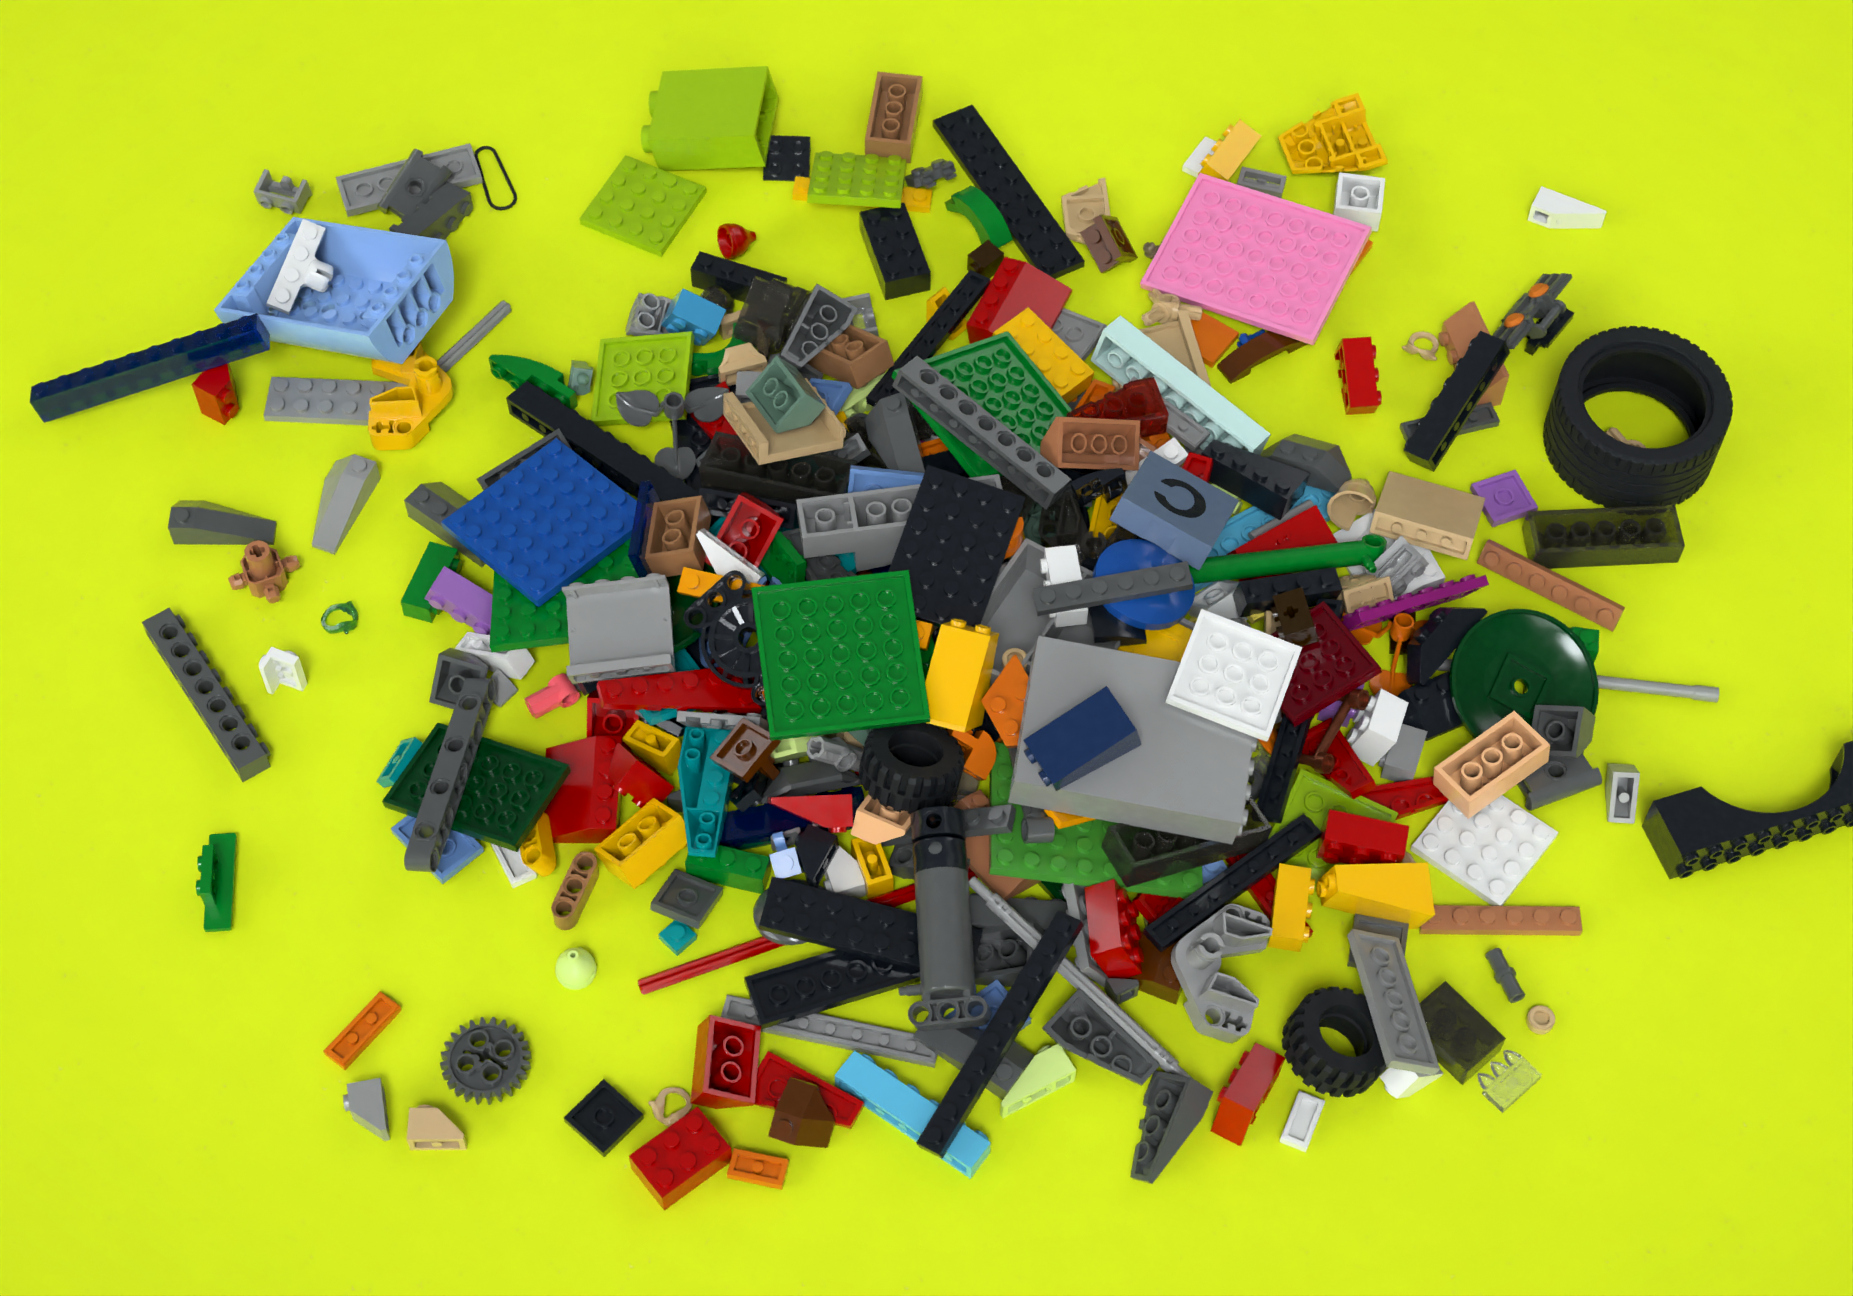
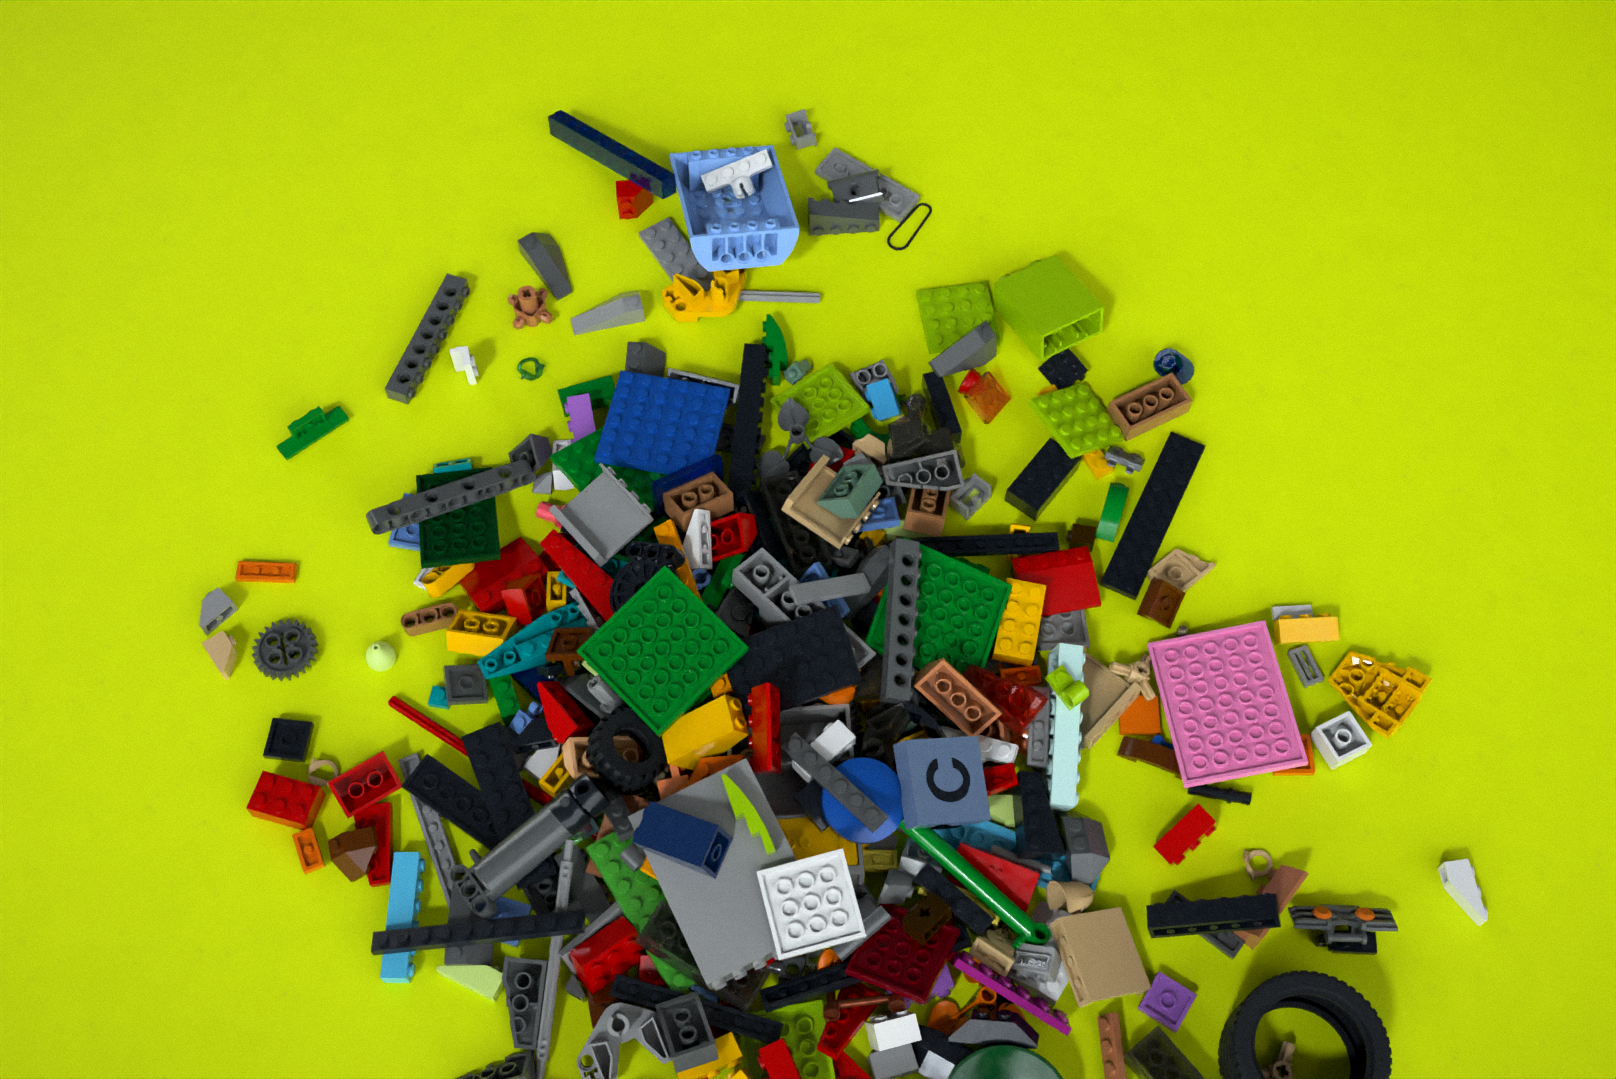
camera: 55 degrees right, 5 degrees up
(697, 214) = (968, 352): none -> dark grey wedge
(763, 236) = (987, 397): none -> clear orange plate
(862, 68) = (1172, 361): none -> piece
(894, 470) = (829, 589): none -> light grey tile
(1010, 606) = (765, 729): none -> red slope
(1090, 666) = (744, 809): none -> lime slope
(1161, 355) = (1067, 689): none -> lime plate
(1257, 894) = (687, 1032): none -> dark grey slope
(1341, 322) = (1225, 794): none -> black pin

